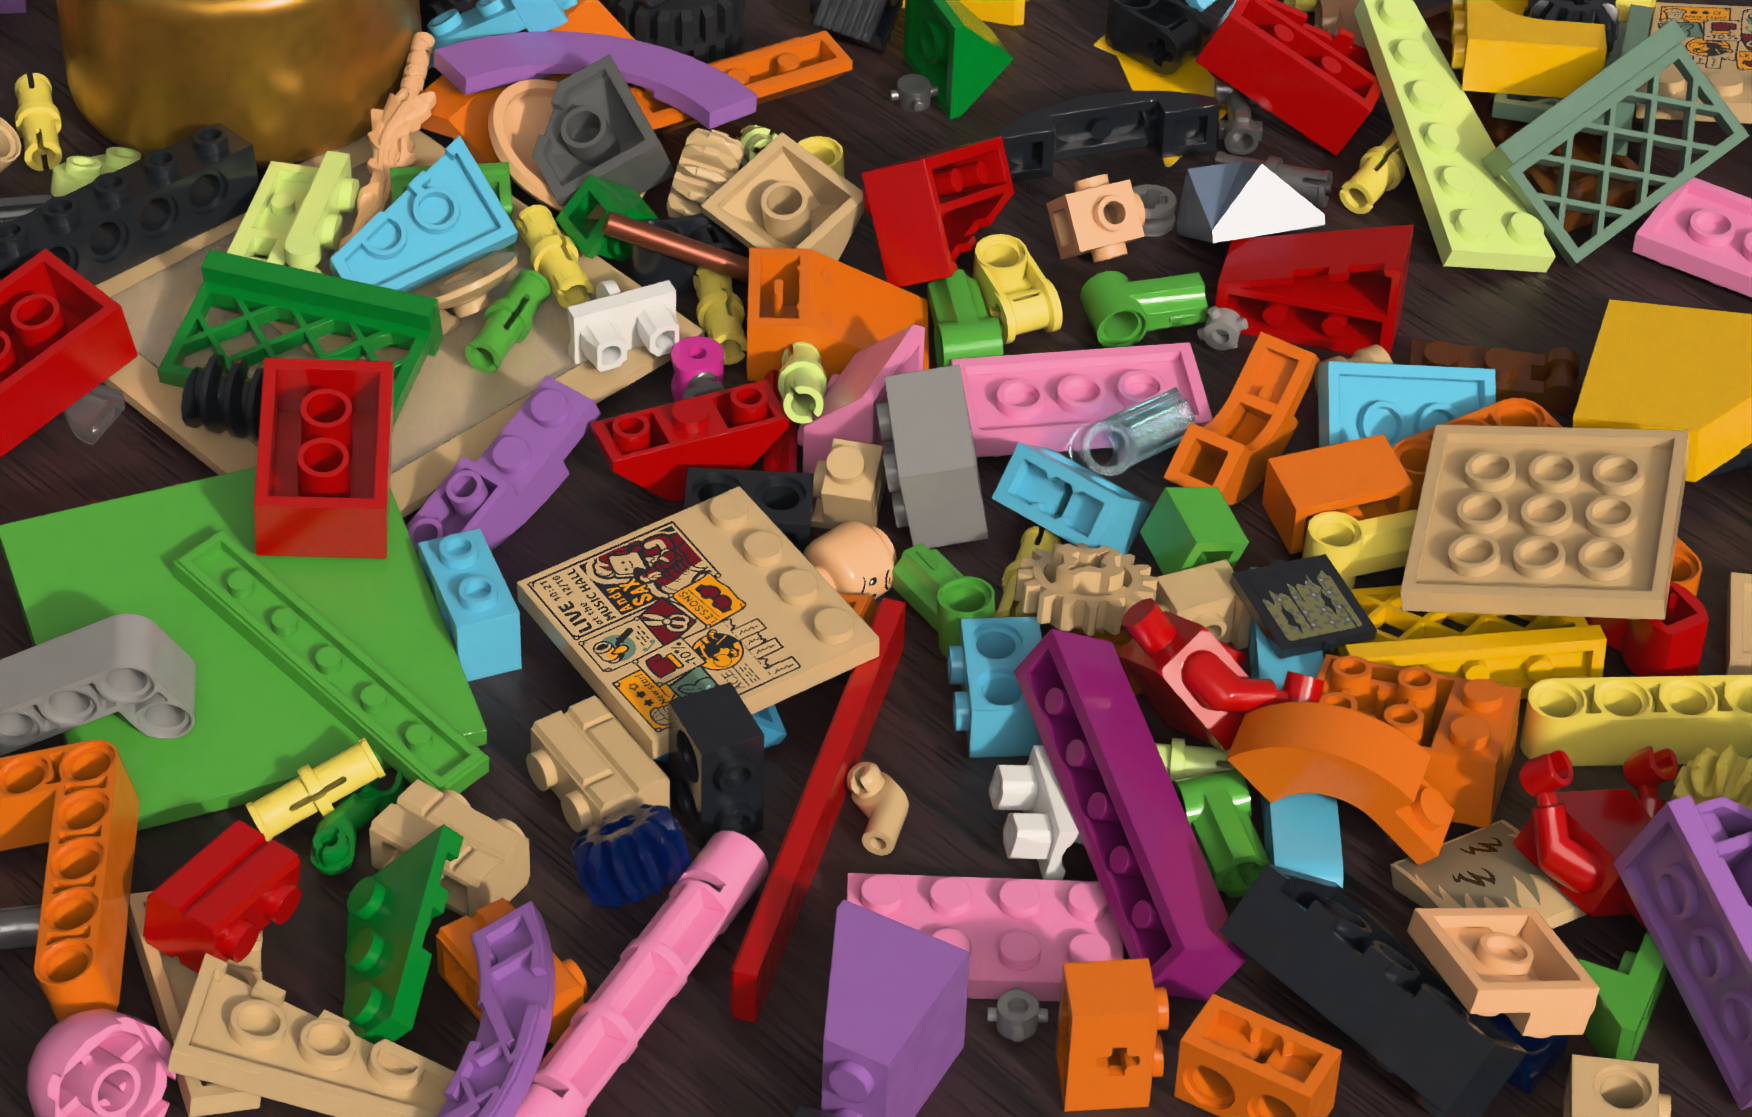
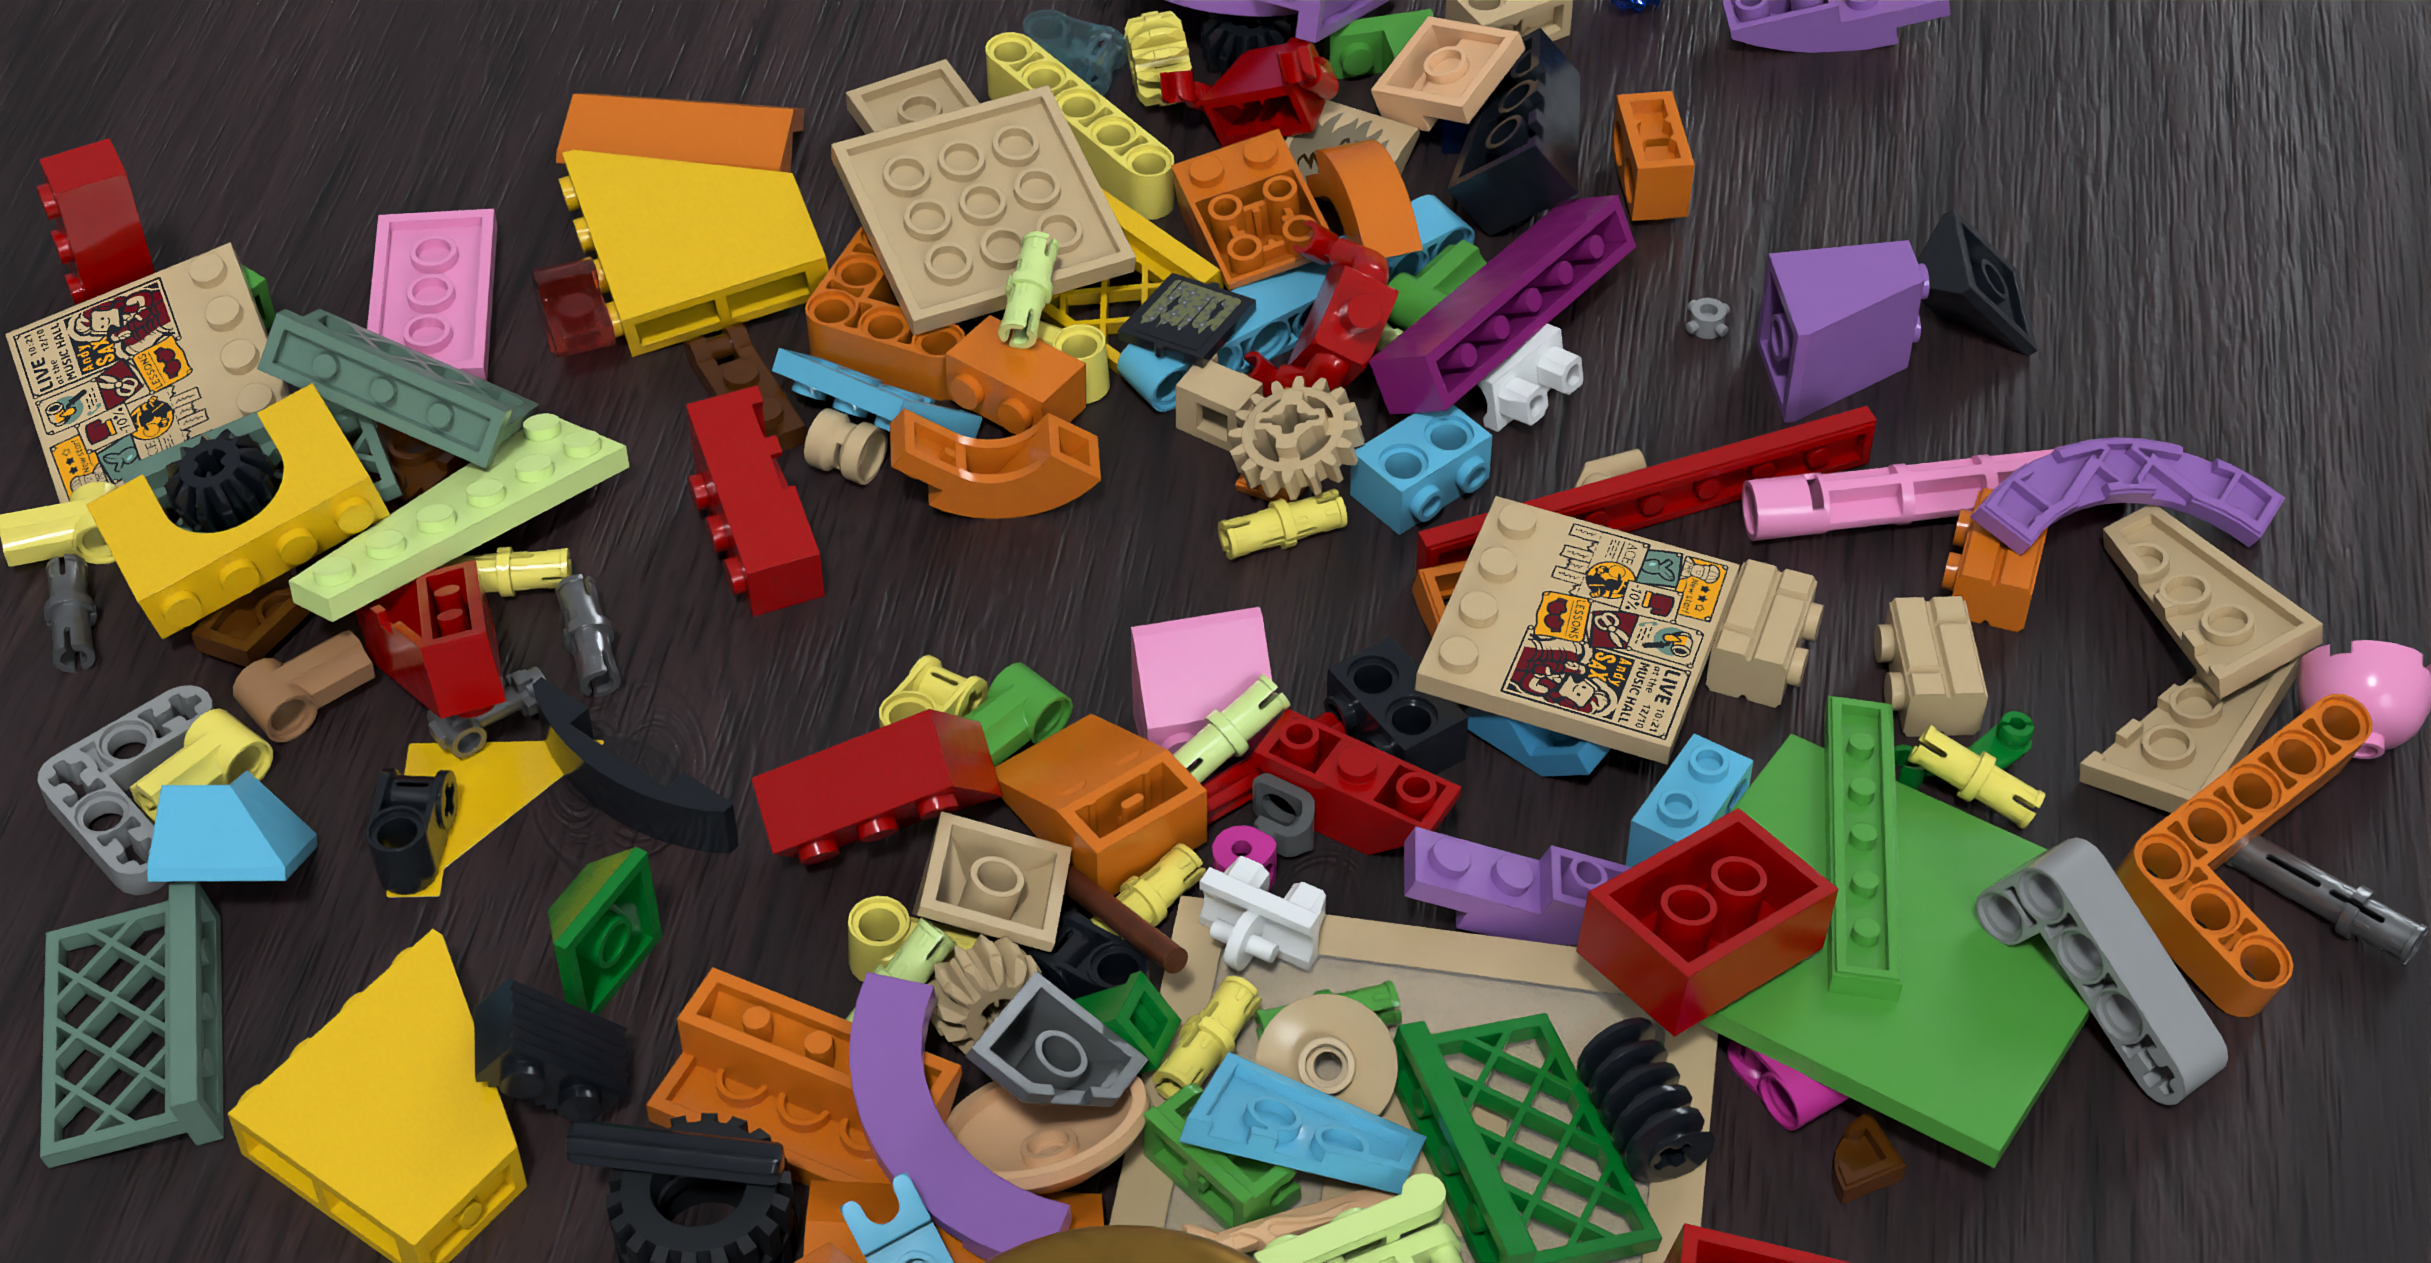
camera: 125 degrees left, 5 degrees up
(223, 898) = (2154, 723): red brick -> none
(387, 936) = (2054, 631): green wing -> none
(630, 855) = (1844, 532): clear blue gear -> none
(716, 763) = (1712, 513): black brick -> none
(849, 484) = (1301, 651): tan brick -> none
(854, 558) = (1383, 612): light nougat head -> none
(913, 92) = (654, 973): flat silver piece -> none
(932, 457) = (1256, 560): light grey brick -> none
(941, 592) = (1361, 544): bright green piece -> none
(1011, 927) = (1664, 369): bright pink plate -> none
(1054, 393) = (1024, 599): bright pink plate -> none
(1070, 499) = (1184, 517): medium azure brick -> none
(1097, 218) = (779, 696): light nougat brick -> none
(1109, 1034) = (1712, 221): orange brick -> none
(1127, 310) = (873, 632): bright green piece -> none
(1134, 432) = (1085, 526): clear light blue piece -> none
(1159, 209) = (710, 692): light grey bush -> none
(1192, 529) = (1164, 417): bright green brick -> none
(1222, 328) = (838, 569): light grey piece -> none
(1241, 203) = (690, 598): slope -> none
(1400, 487) = (1028, 290): none -> yellowish green pin
(1674, 278) = (572, 307): none -> clear red brick

